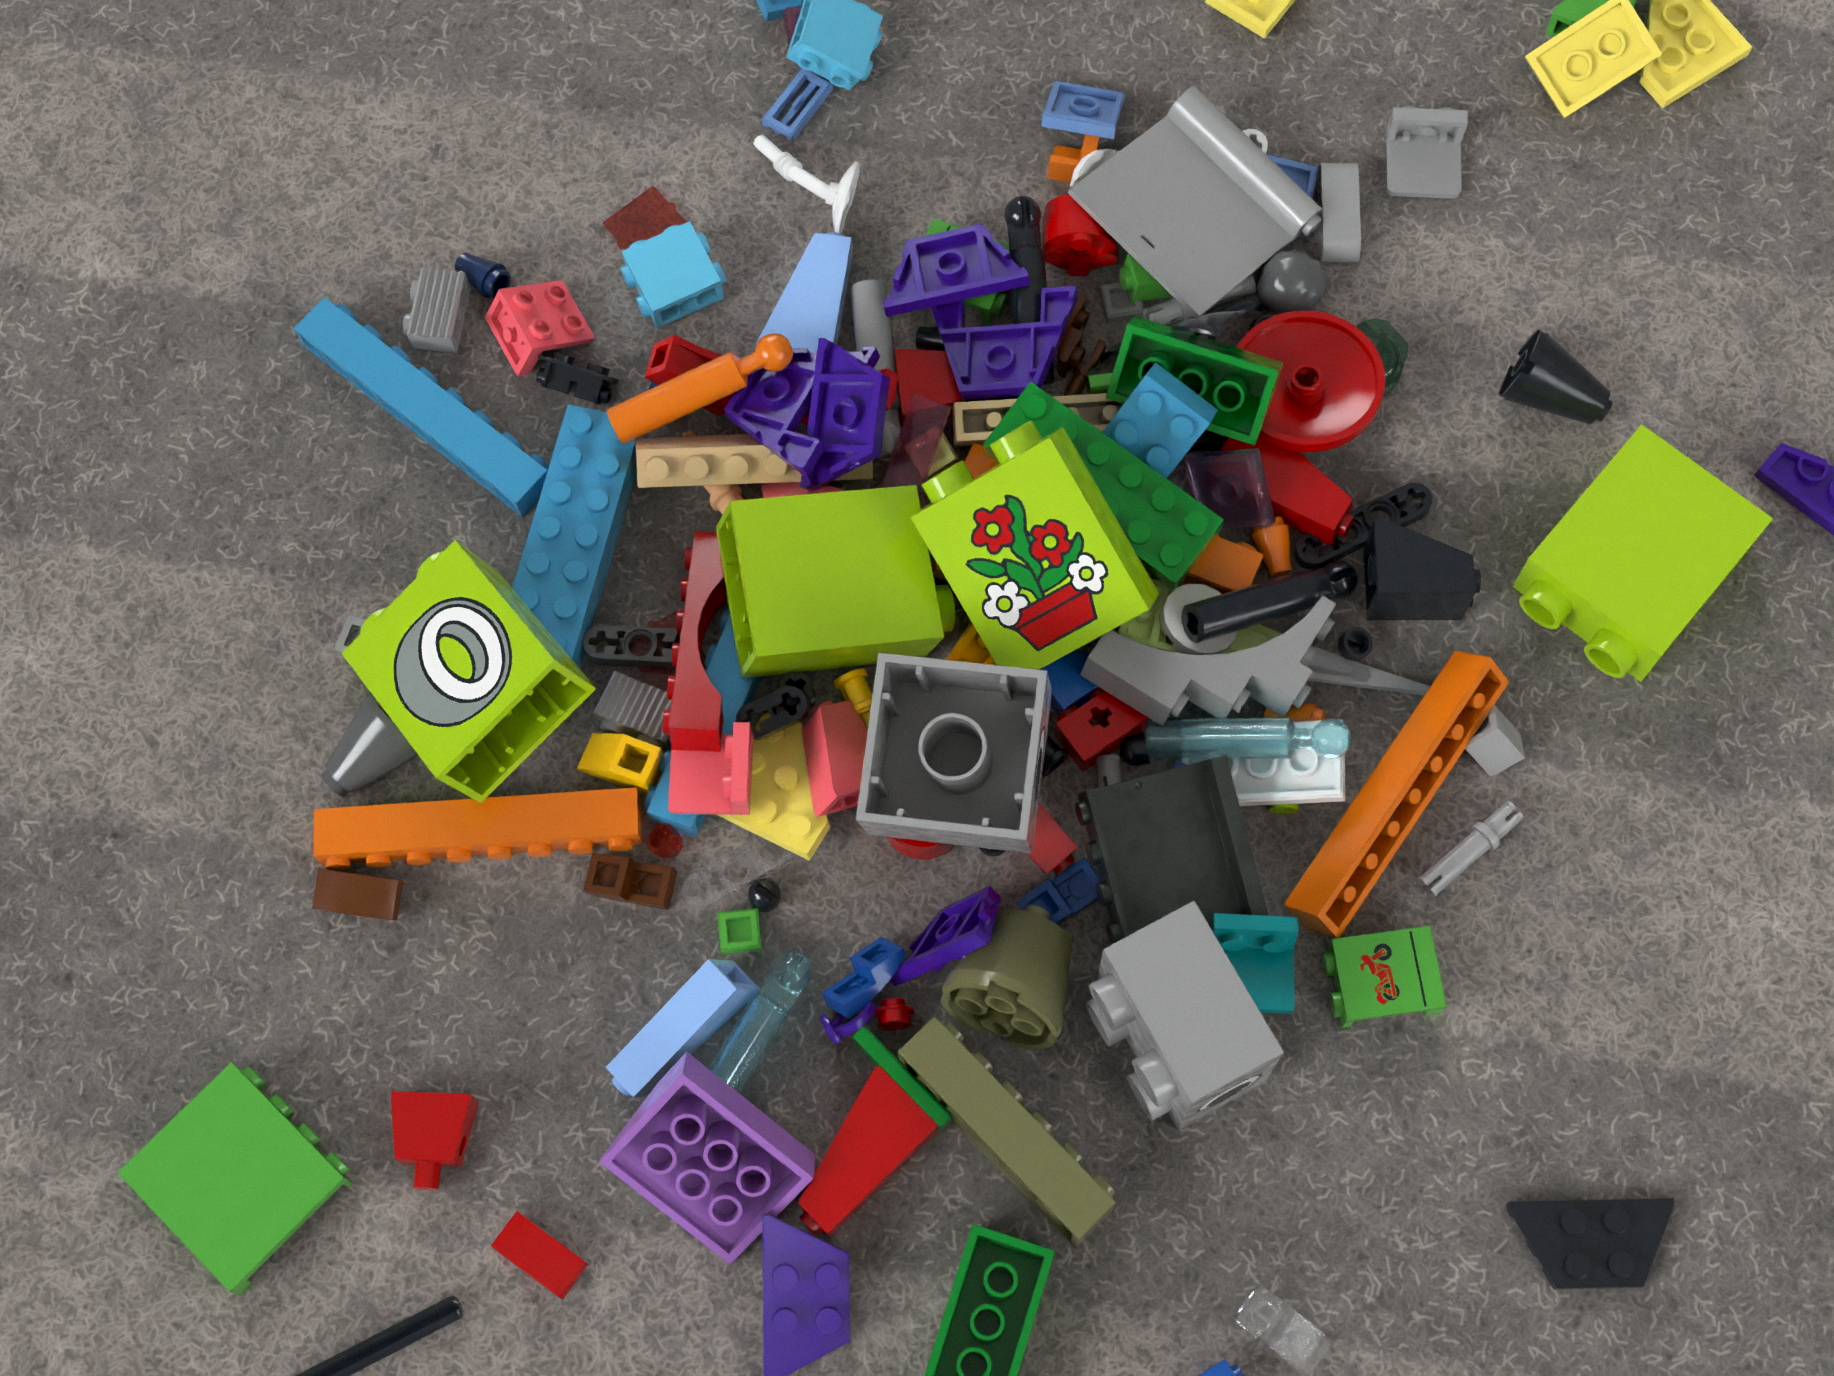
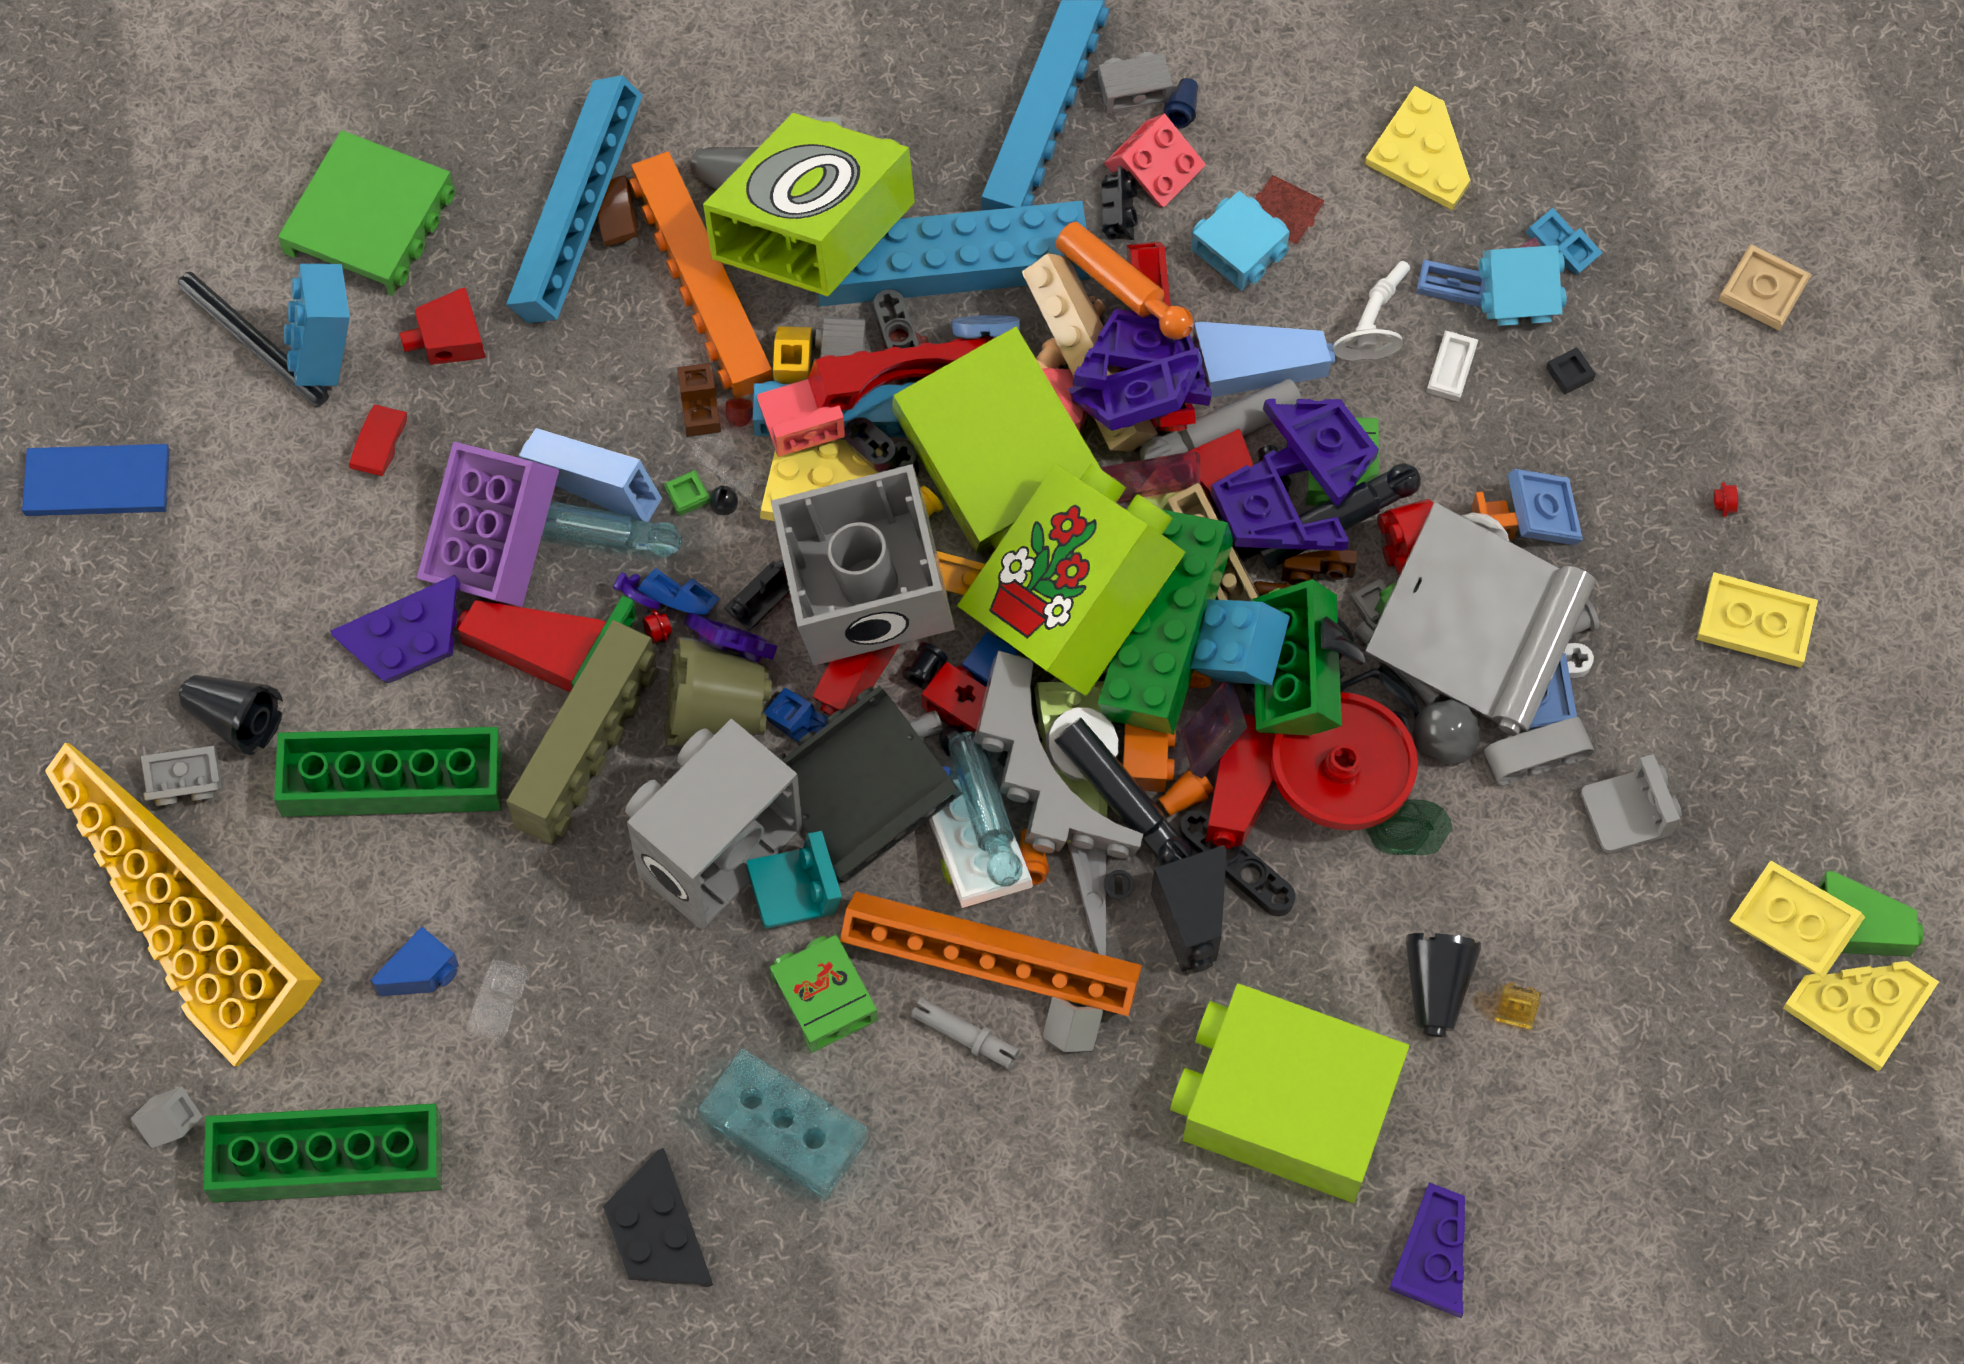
camera: 65 degrees right, 5 degrees down
(327, 933) = (574, 200): none -> dark azure brick
(380, 1274) = (317, 324): none -> dark azure brick
(635, 77) = (1422, 150): none -> light yellow plate
(670, 552) = (983, 325): none -> medium blue tile
(889, 138) = (1452, 366): none -> white tile
(894, 891) = (760, 595): none -> black hinge
(940, 36) = (1570, 370): none -> black plate
(1526, 1037) = (783, 1099): none -> clear light blue brick
(1598, 326) = (1518, 1006): none -> clear yellow tile

